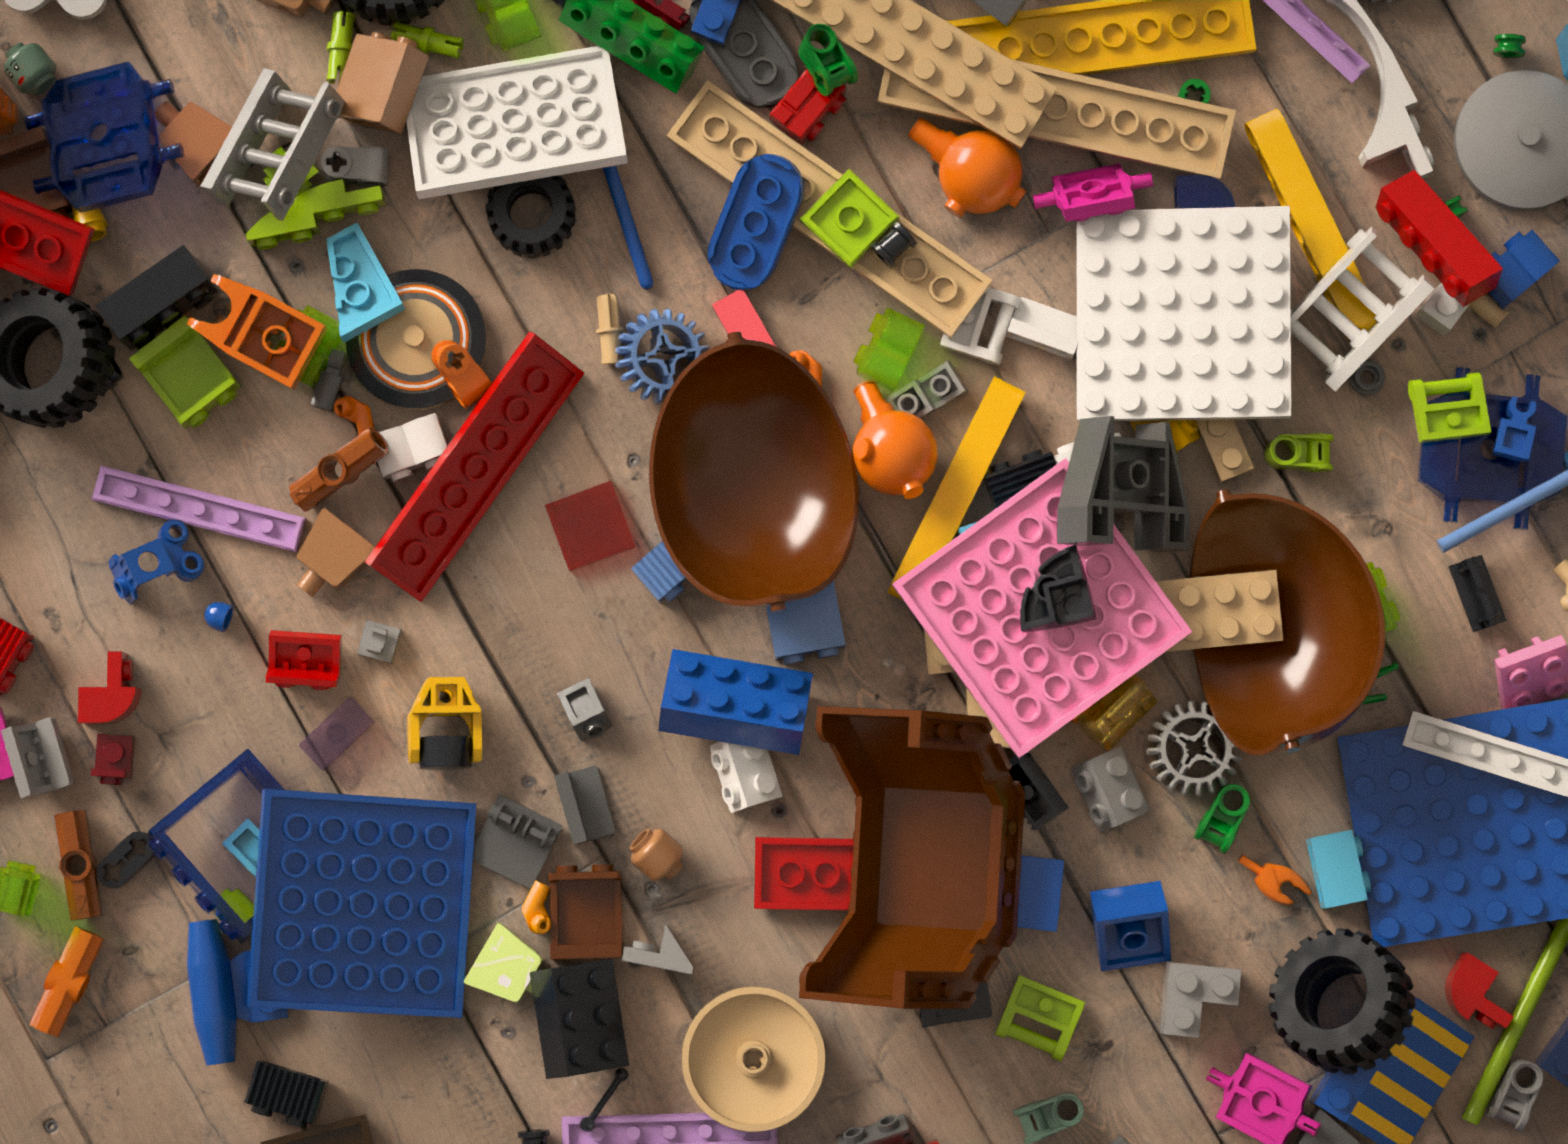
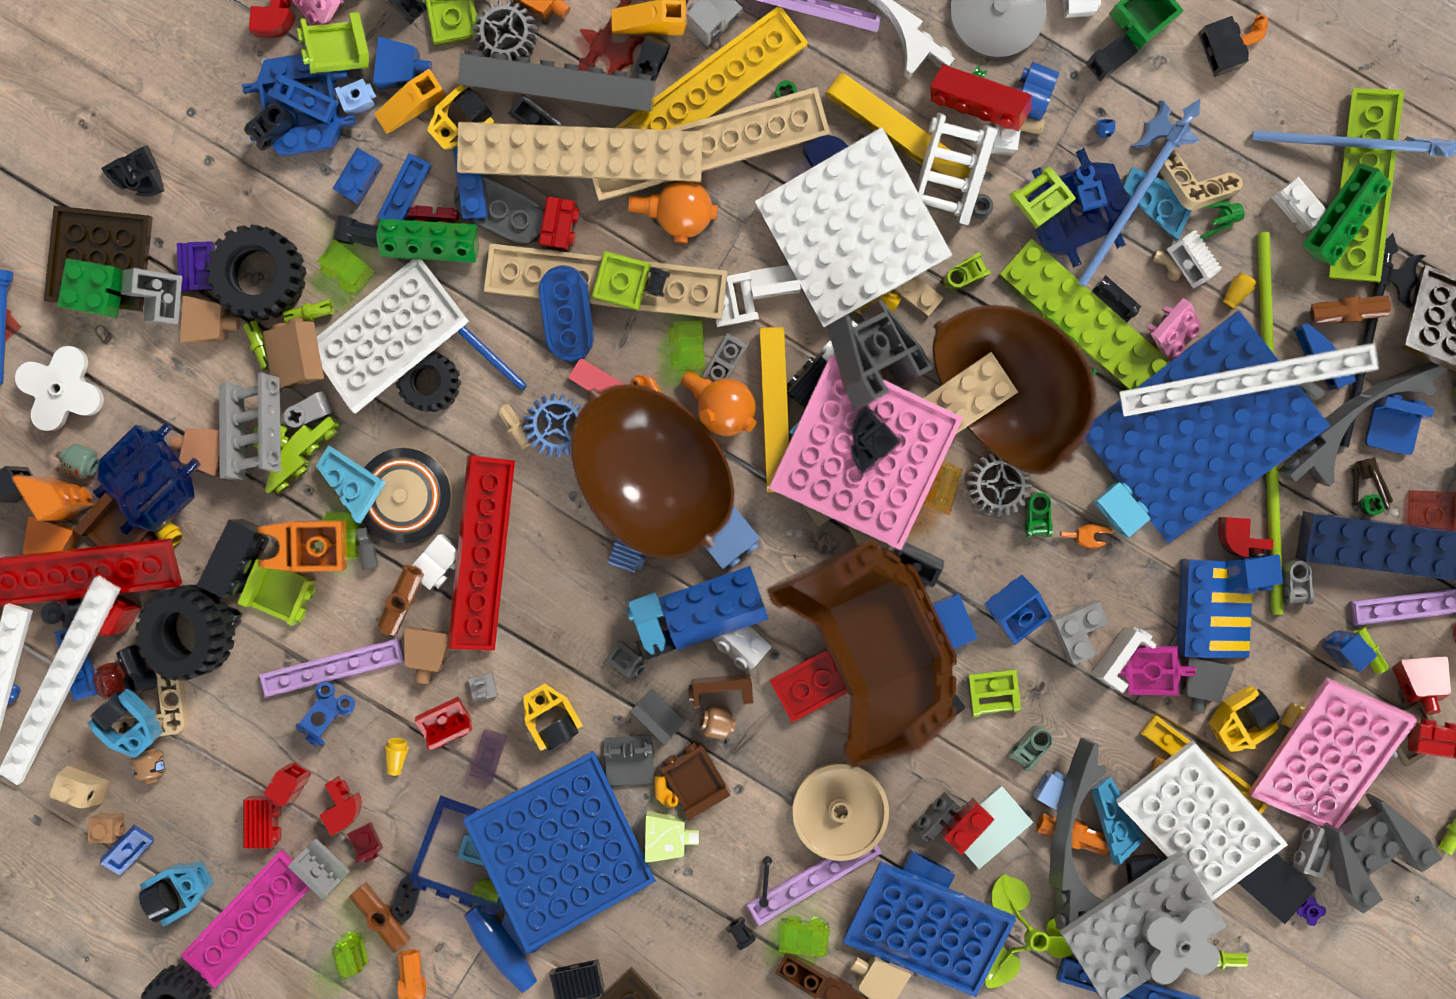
camera: 30 degrees left, 5 degrees up
(59, 625) = (287, 784): none -> red brick
(217, 667) = (396, 753): none -> yellow cone
(219, 615) = (379, 724): blue hinge -> none
(354, 411) = (392, 558): orange arm -> none
(464, 376) = (443, 503): orange piece -> none
(579, 1019) = (725, 846): black brick -> none
(590, 526) = (569, 549): clear red tile -> none
(644, 660) = (653, 638): none -> dark azure piece
(670, 957) = (758, 779): light grey slope -> none
(721, 819) = (719, 684): none -> reddish brown panel
(827, 66) = (557, 194): green piece -> none
(1093, 192) = (758, 184): dark pink plate -> none
(1110, 789) = (962, 536): light grey bracket -> none
(1200, 1068) = (1119, 654): none -> white panel
(1376, 1025) = (1201, 581): black tyre -> none
(1424, 589) = (1079, 311): none -> lime plate
(1466, 1046) = (1254, 573): none -> blue brick

